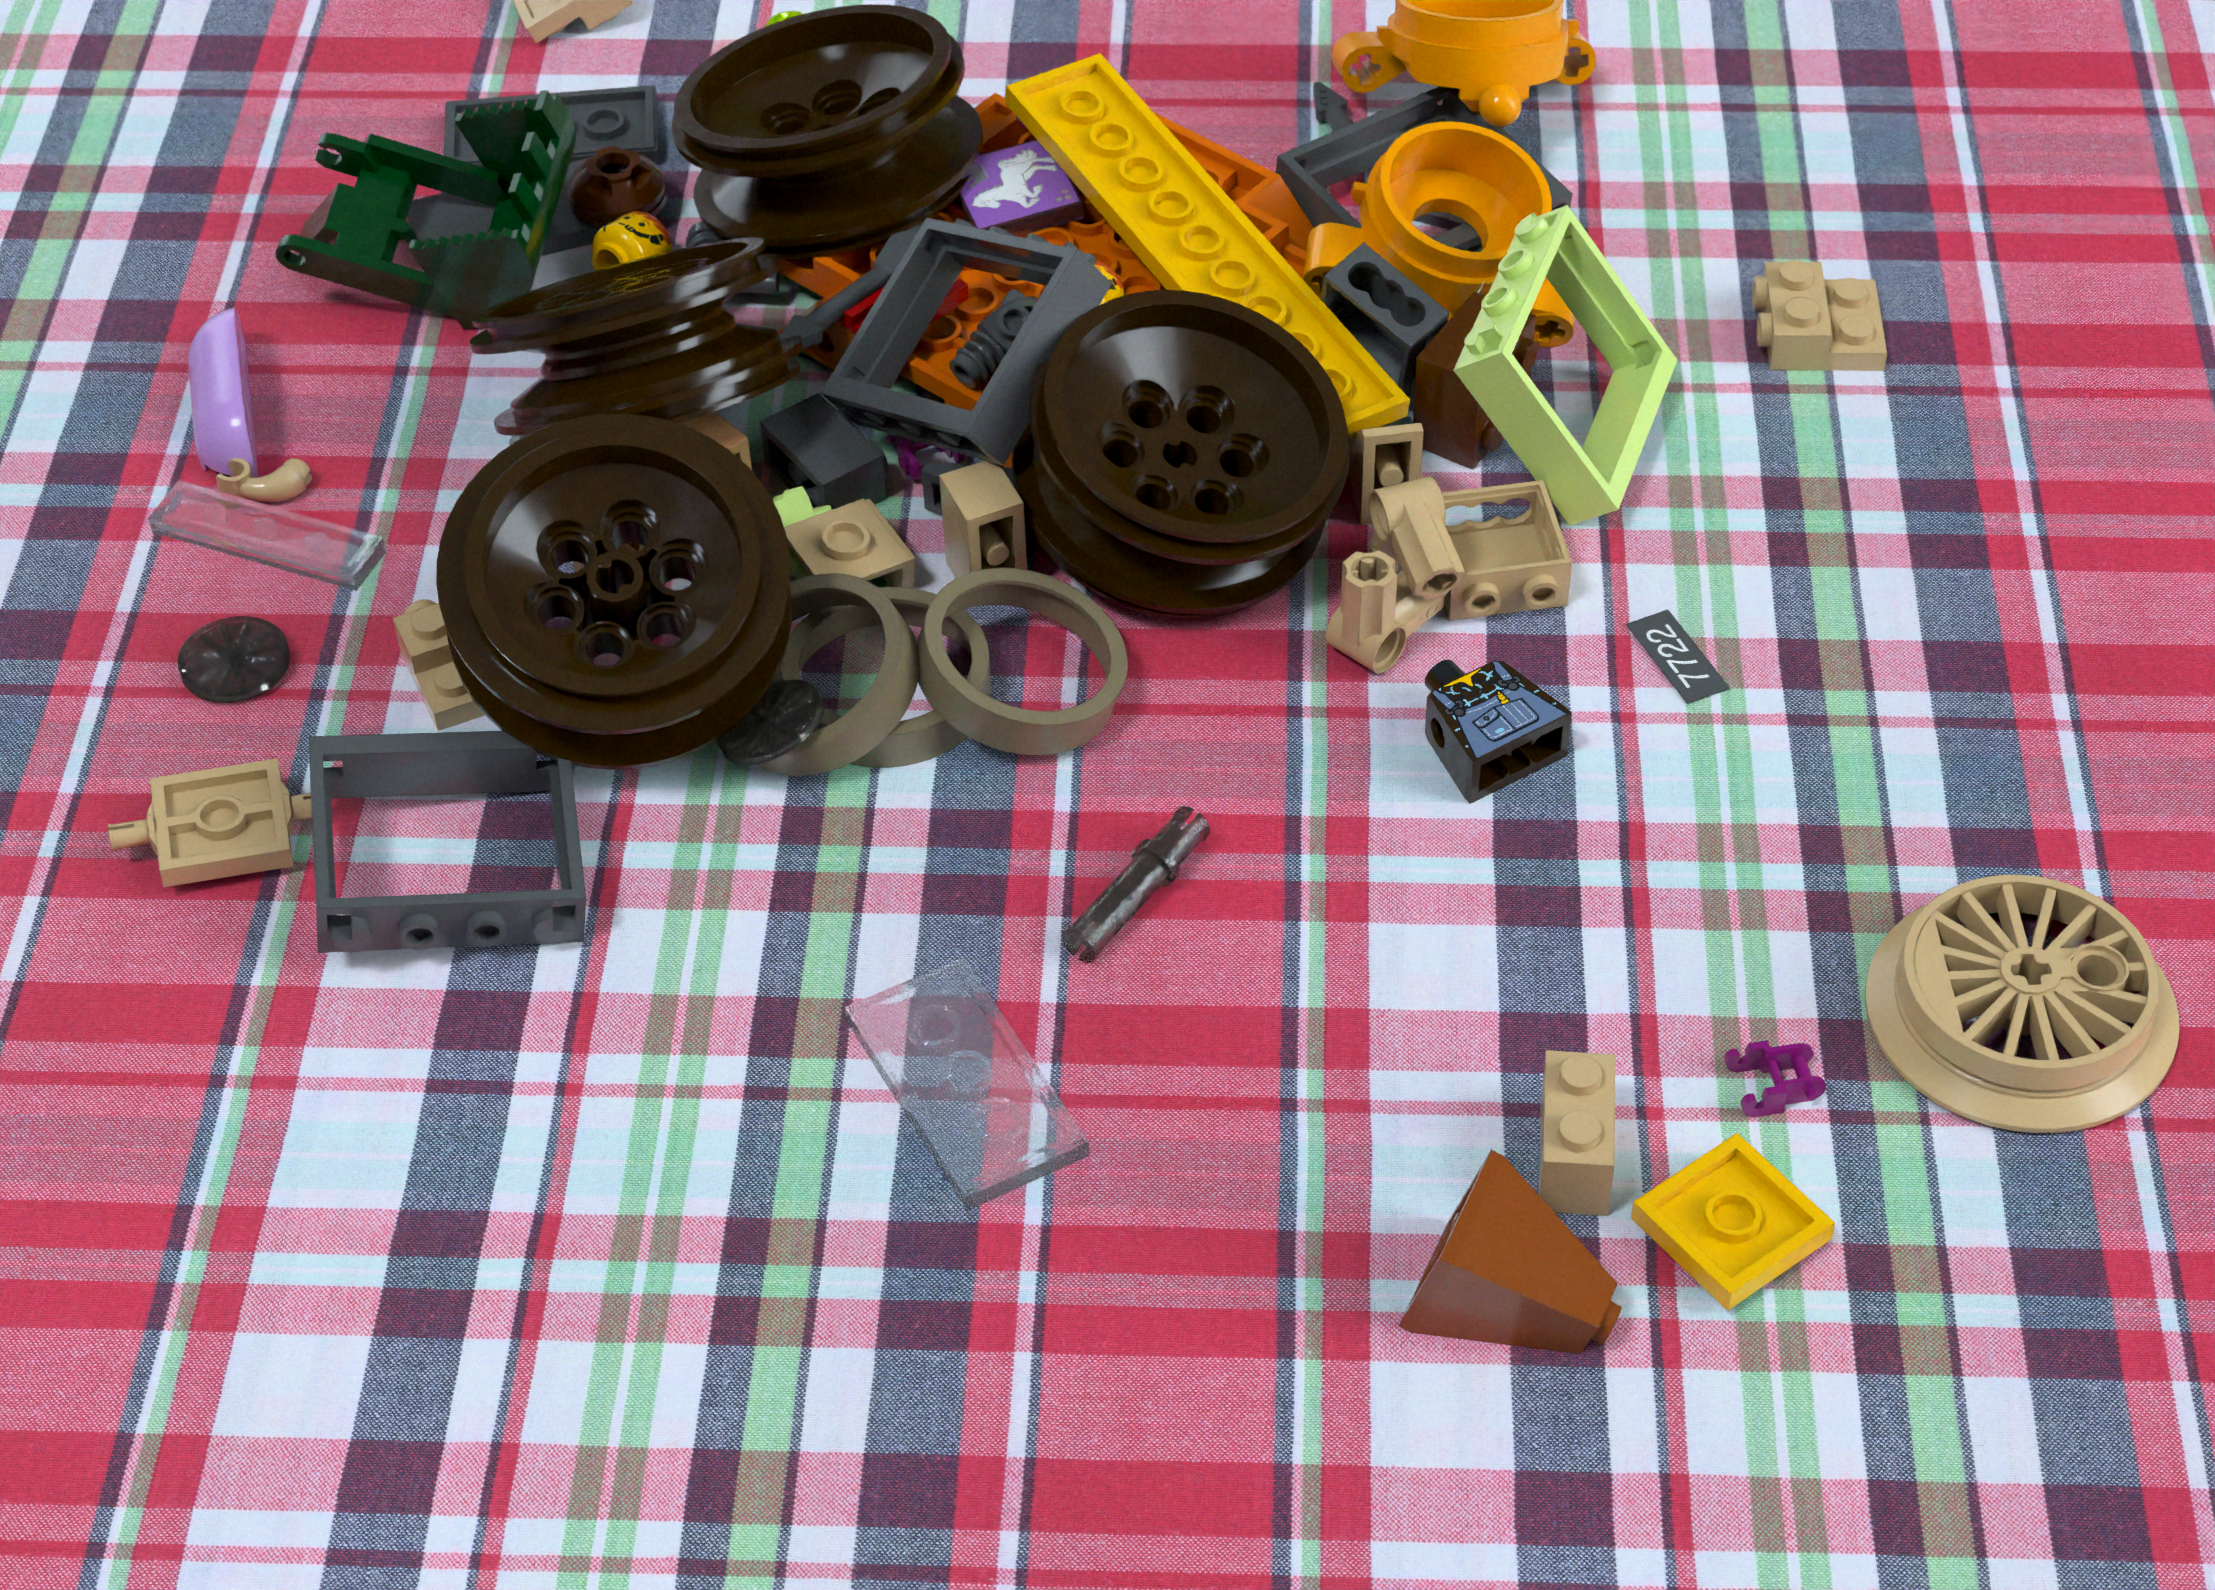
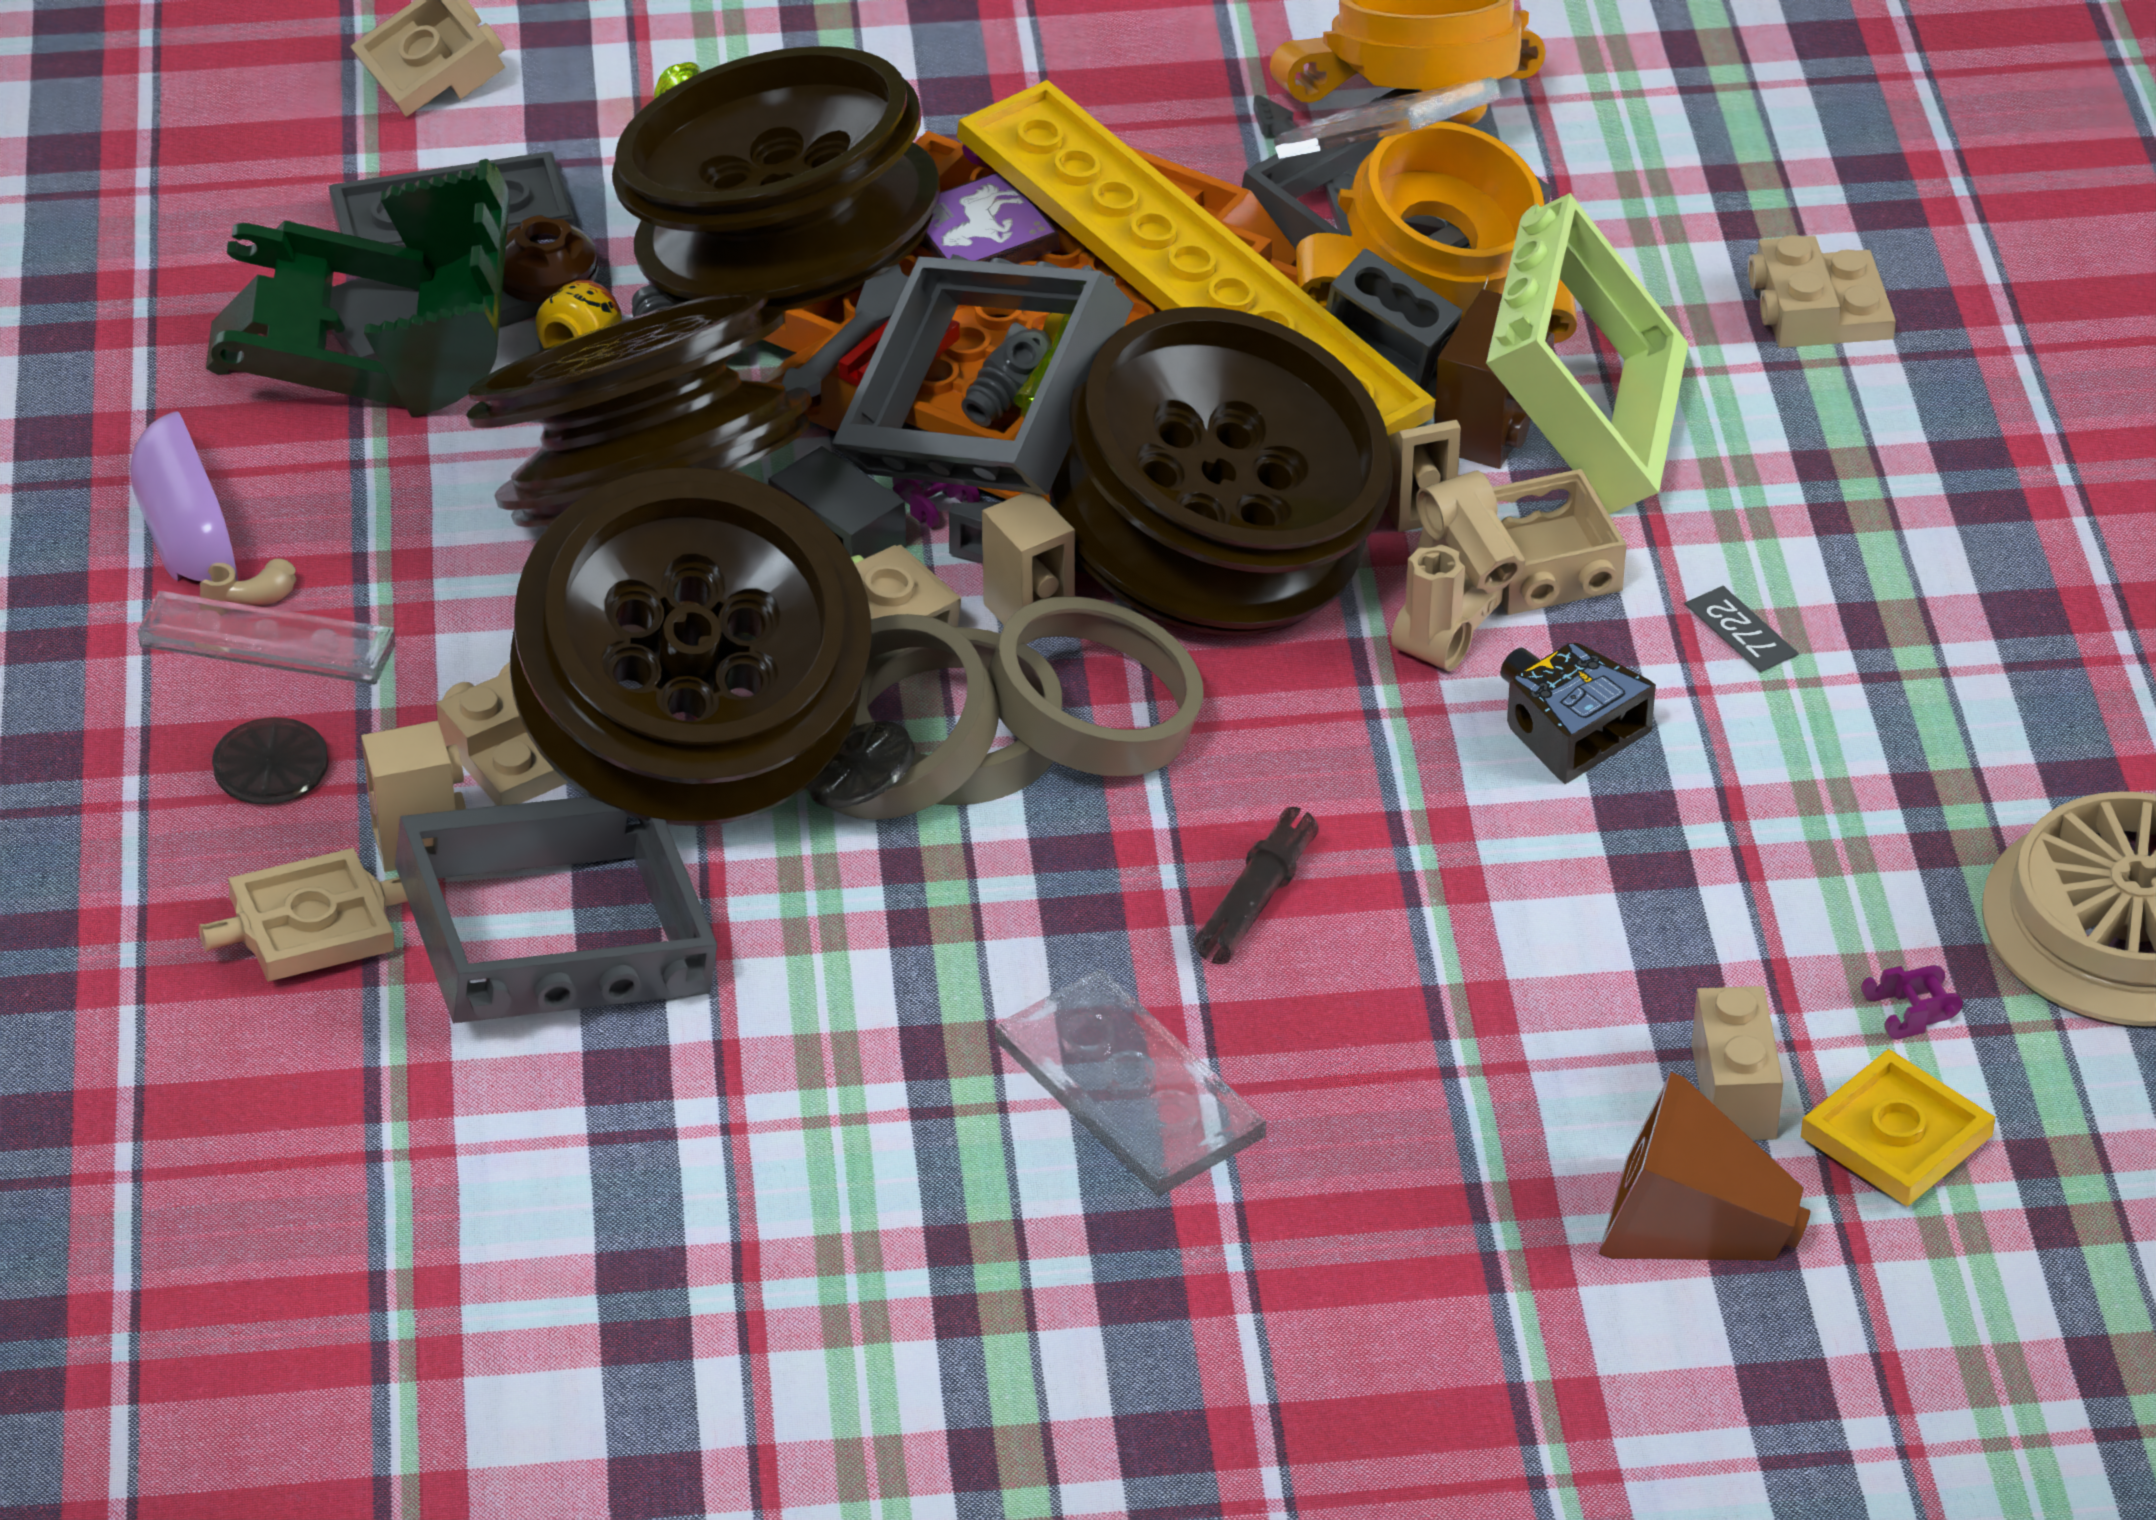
camera: 10 degrees left, 5 degrees down
(336, 695) = (408, 775): none -> tan brick
(1414, 114) = (1387, 117): none -> clear tile

